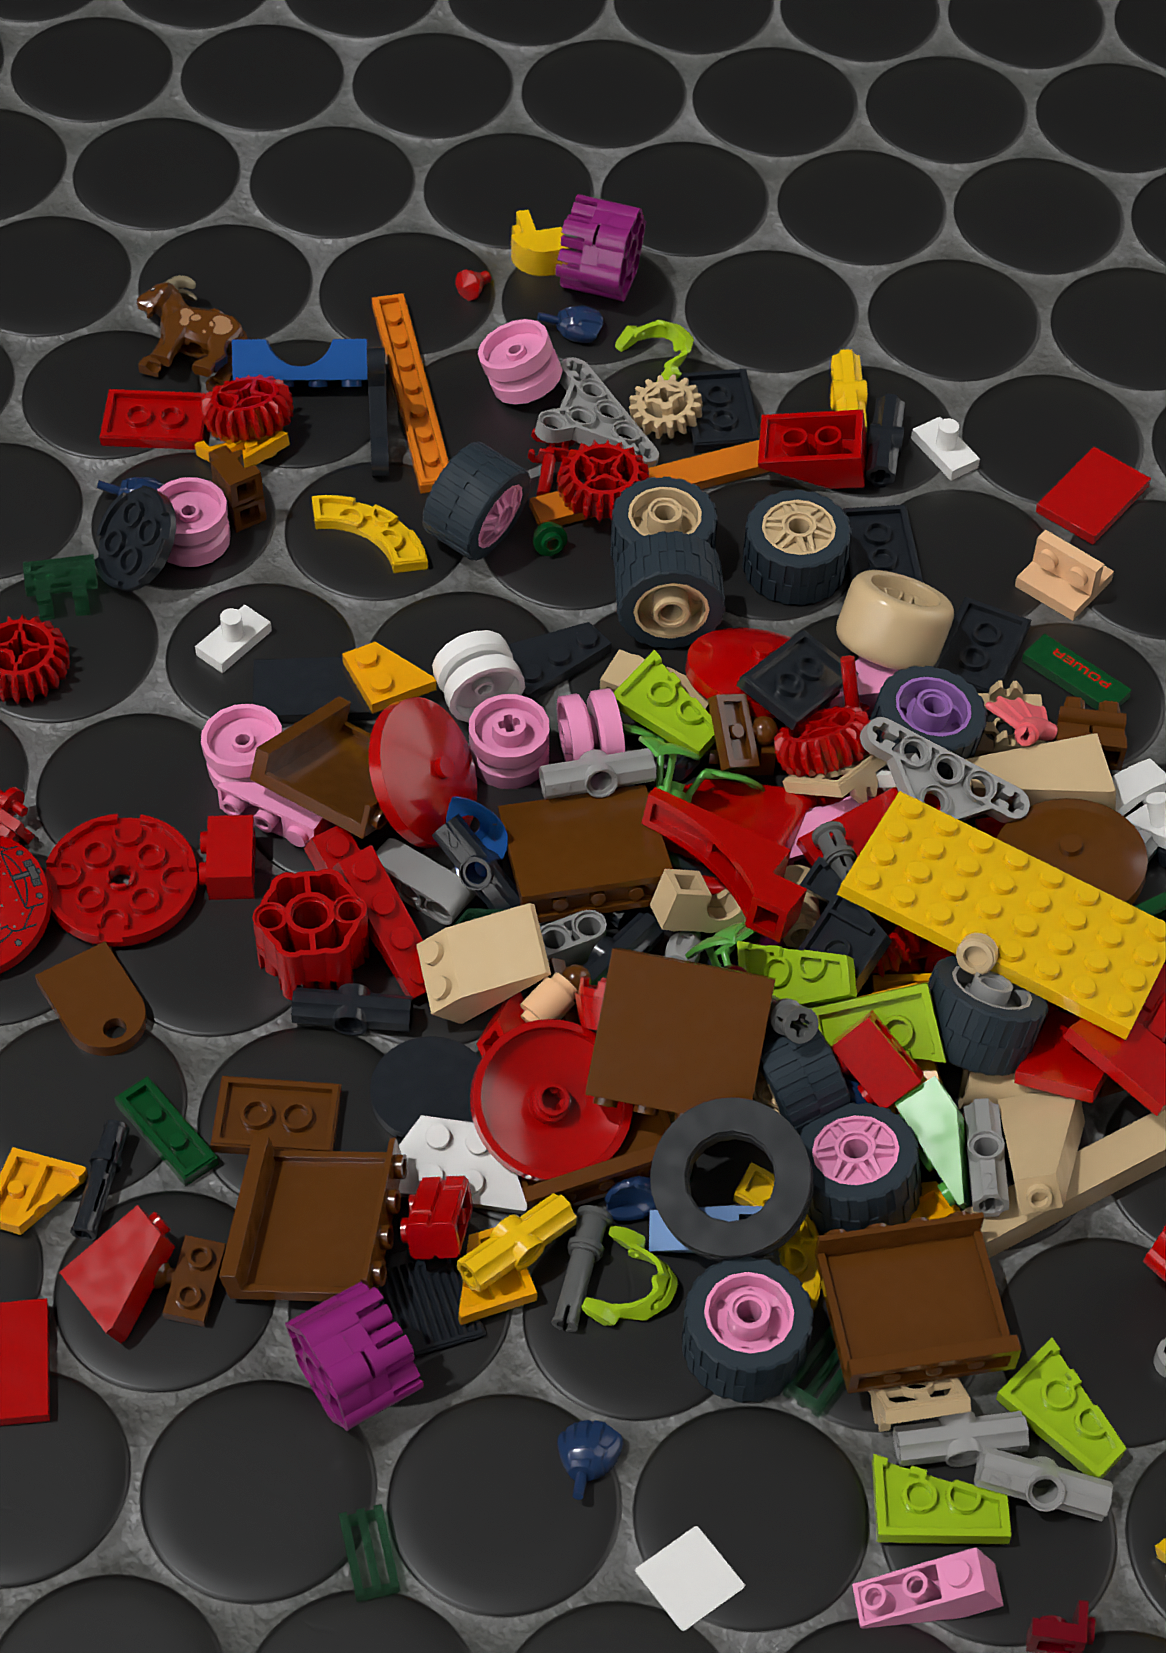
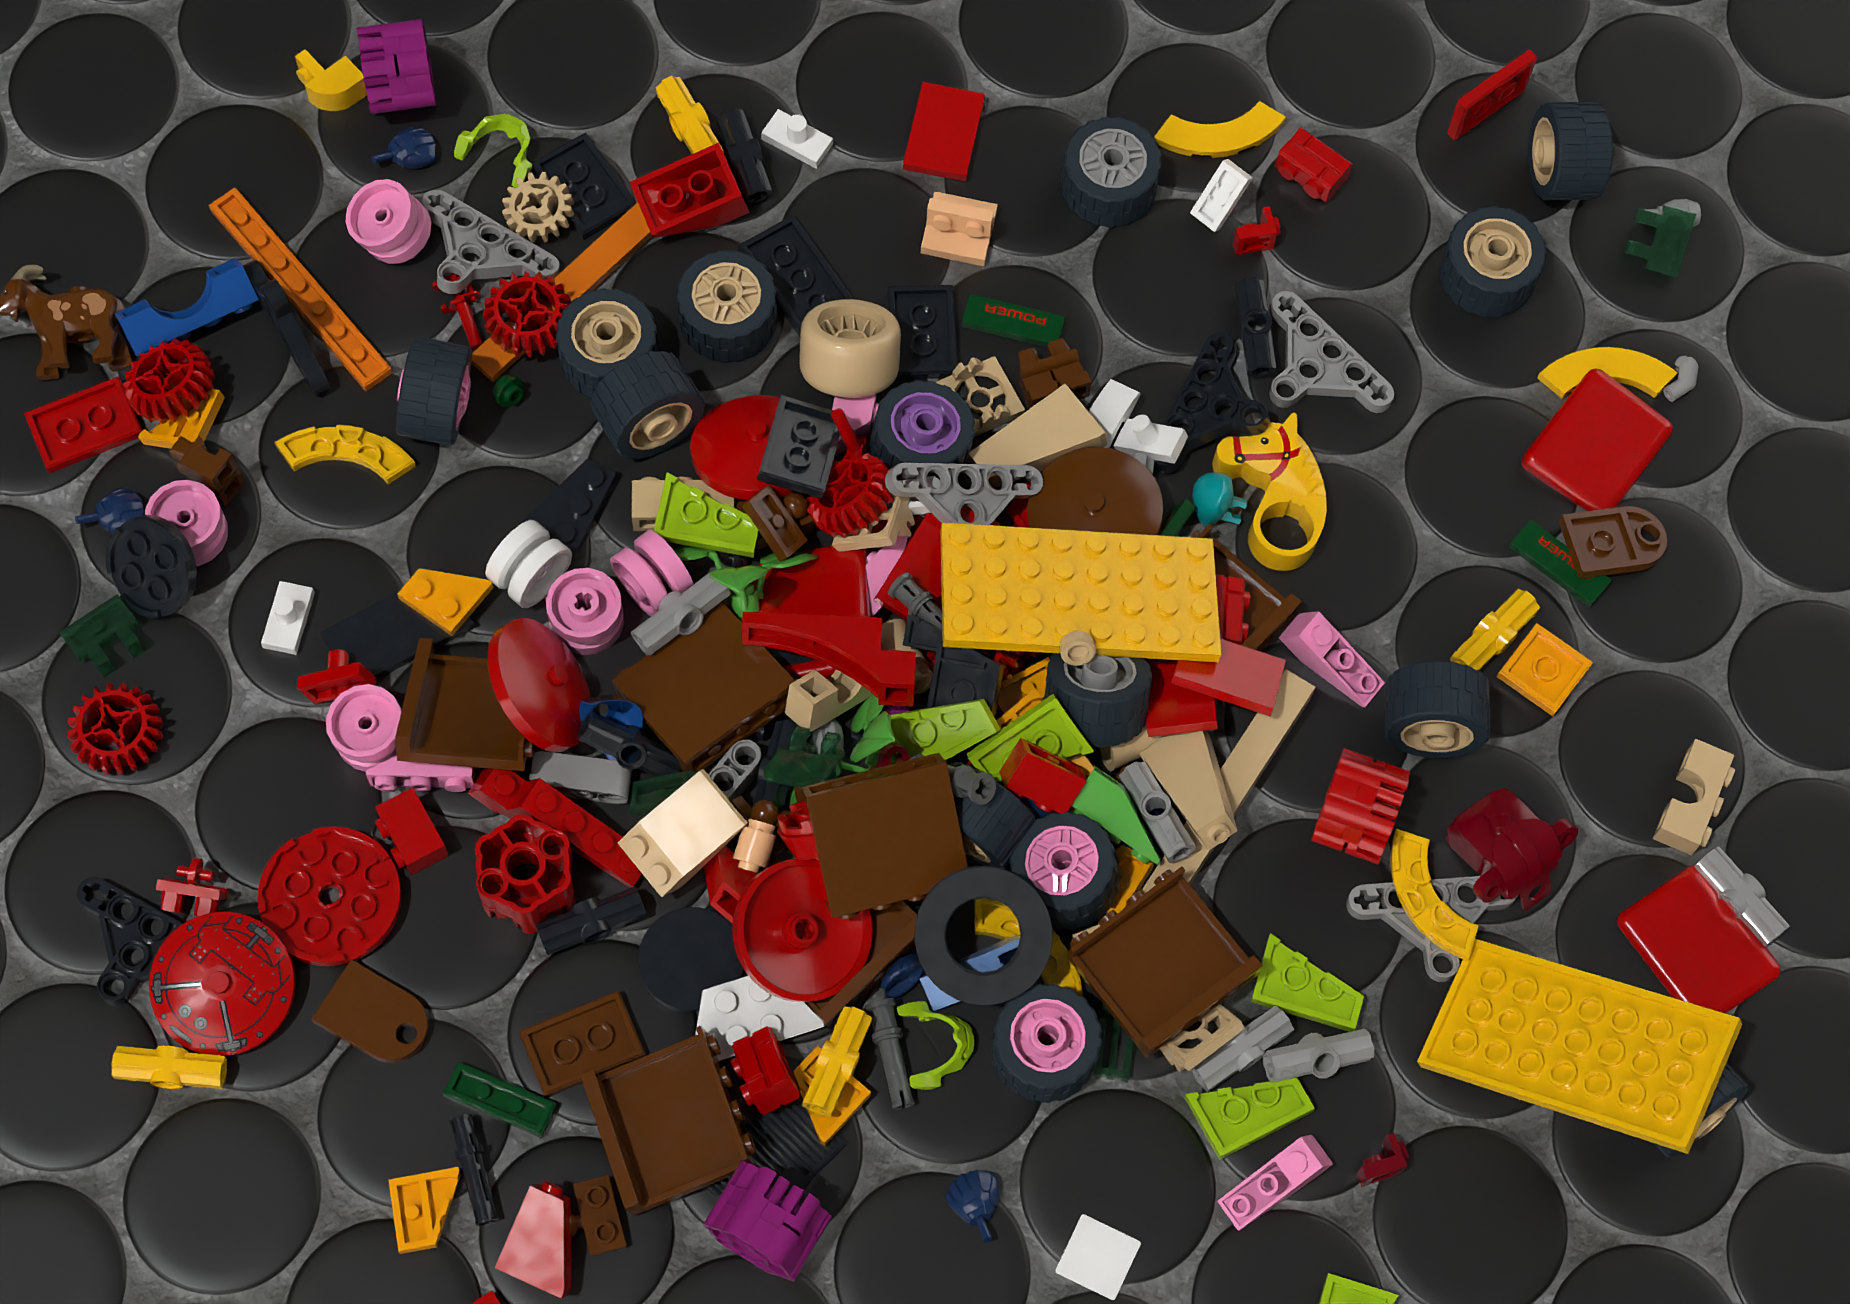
camera: 30 degrees left, 15 degrees up
(251, 691) = (338, 677): none -> red tile
(471, 283) = (291, 149): red rock -> none
(643, 941) = (802, 768): none -> clear green plate
(1027, 719) = (998, 392): coral arm -> none

